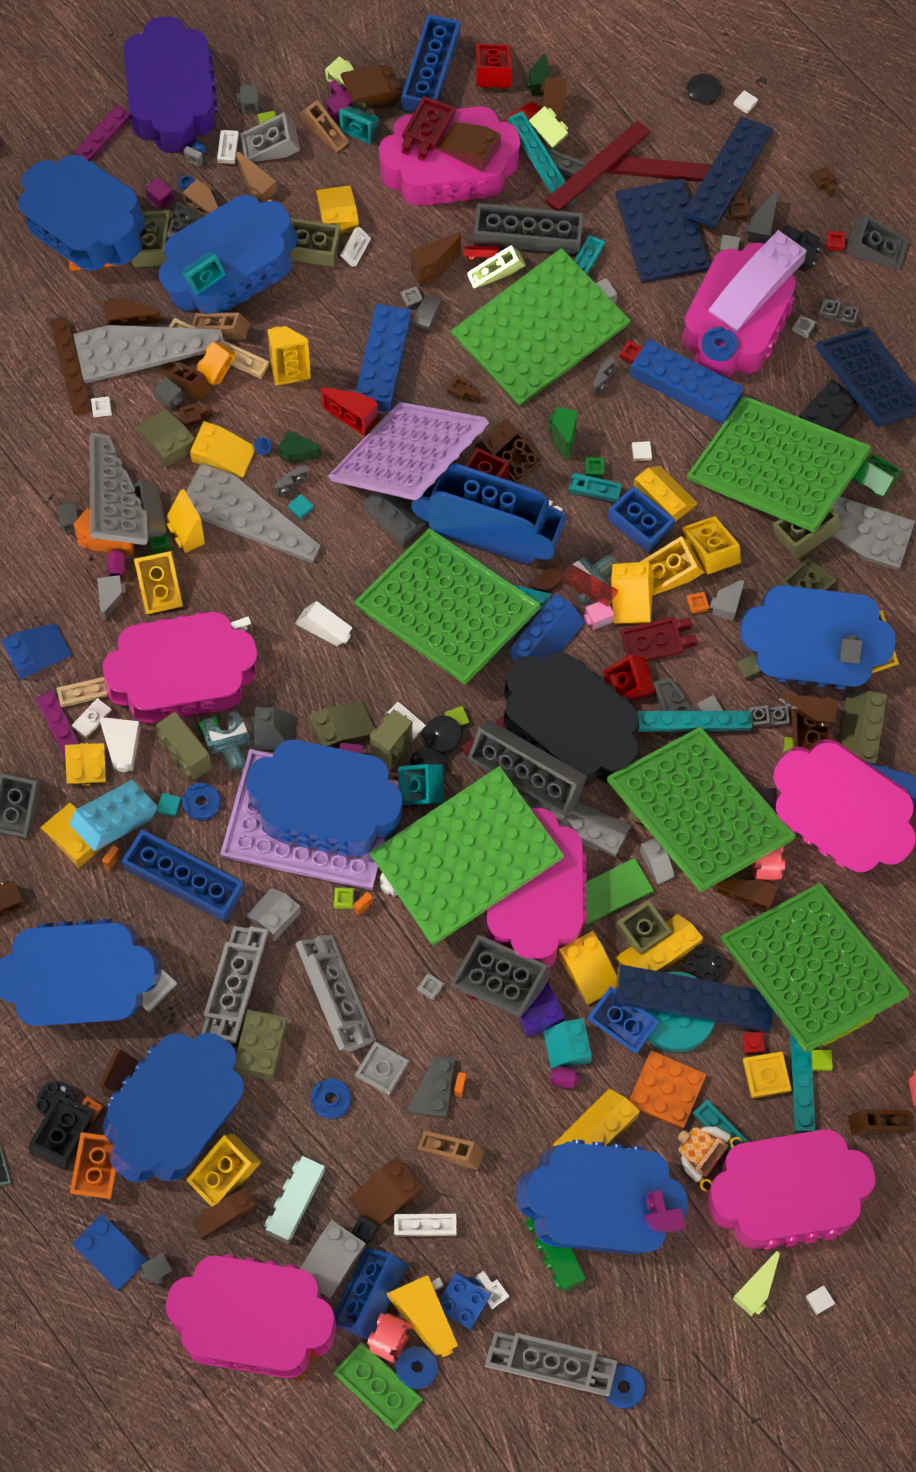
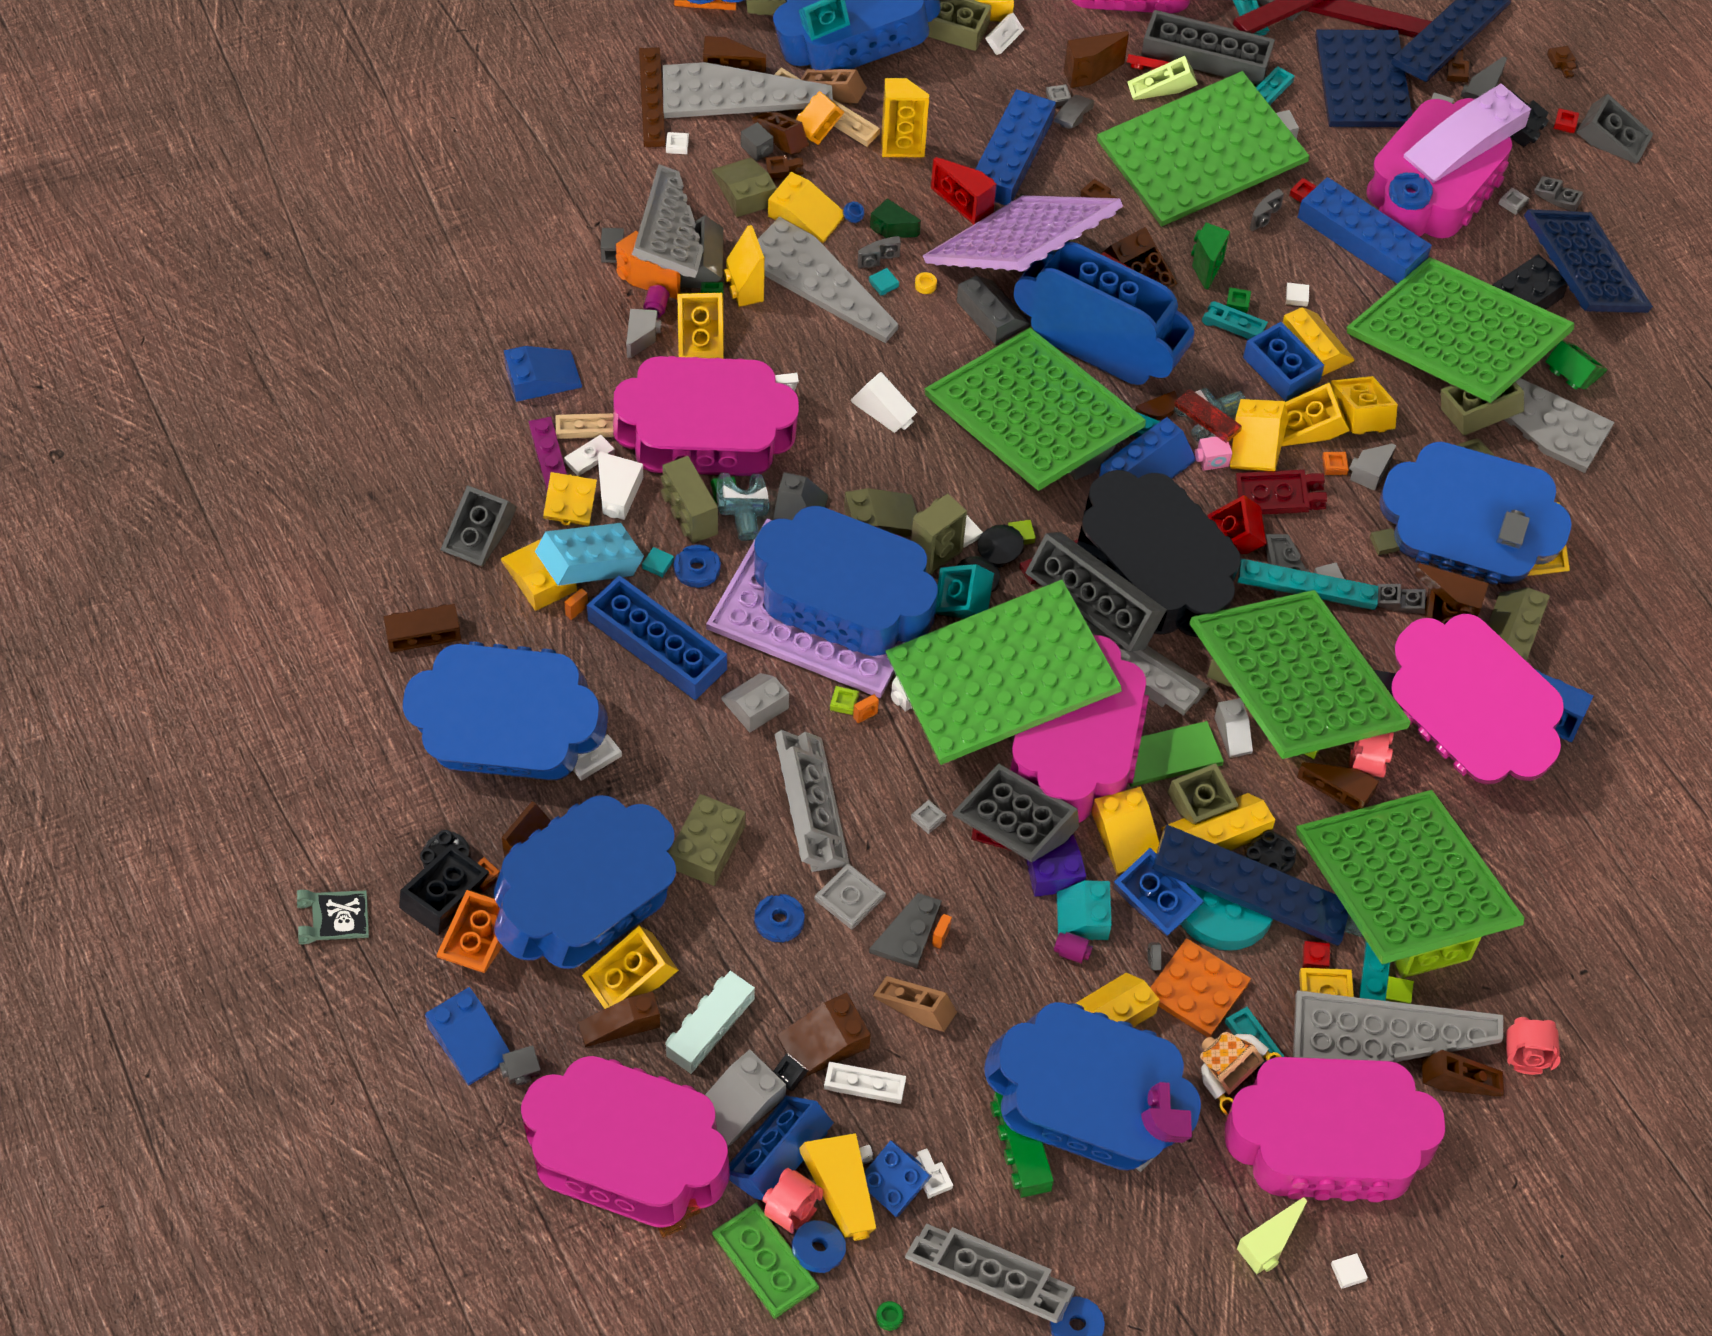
camera: 10 degrees right, 10 degrees down
(234, 982) = (692, 761): light grey slope -> none
(335, 500) = (925, 283): none -> yellow tile
(481, 1410) = (889, 1315): none -> green tile
(628, 1070) = (1154, 955): none -> dark grey tile
(808, 1102) = (1385, 1030): none -> light grey wing

